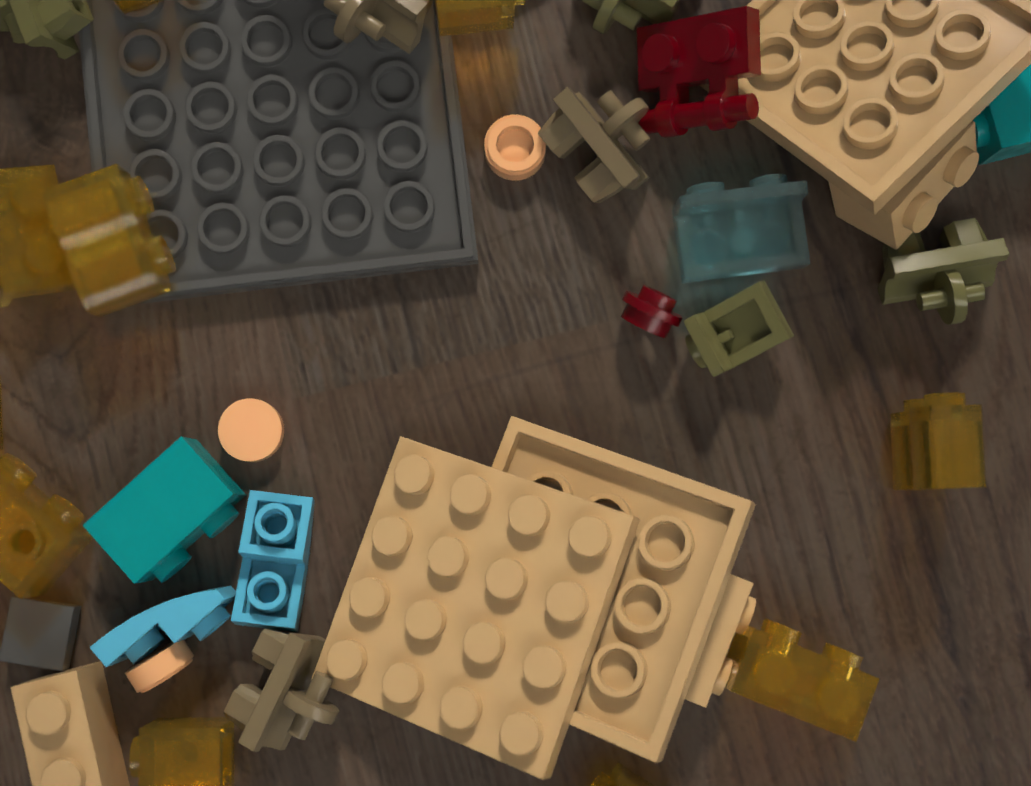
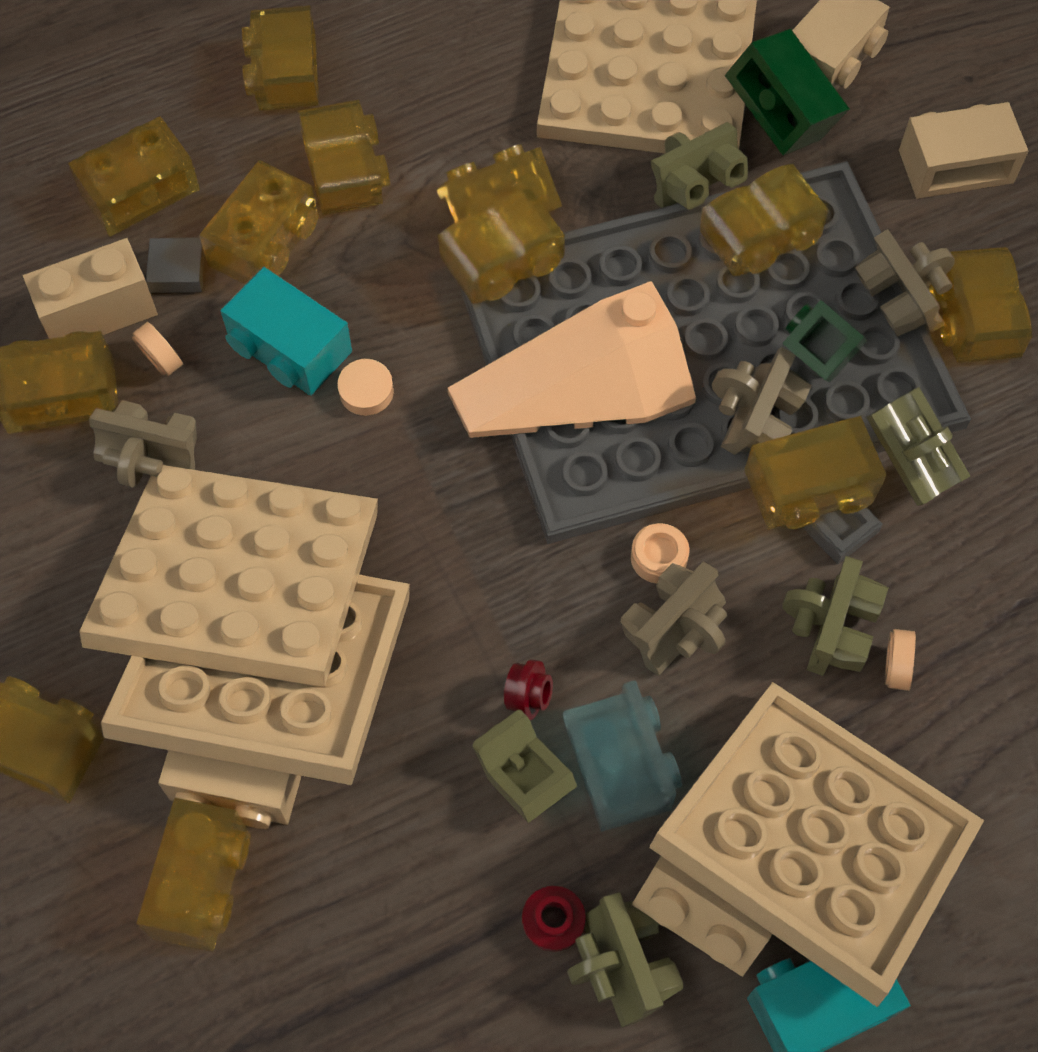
camera: 80 degrees right, 20 degrees down
(179, 618) = (193, 347): medium azure slope -> none
(274, 561) = (267, 423): medium azure slope -> none
(295, 164) = (594, 367): none -> light nougat wedge
(696, 52) = (780, 683): dark red plate -> none
(868, 334) = (553, 938): none -> dark red plate
(938, 444) = (438, 964): clear yellow brick -> none

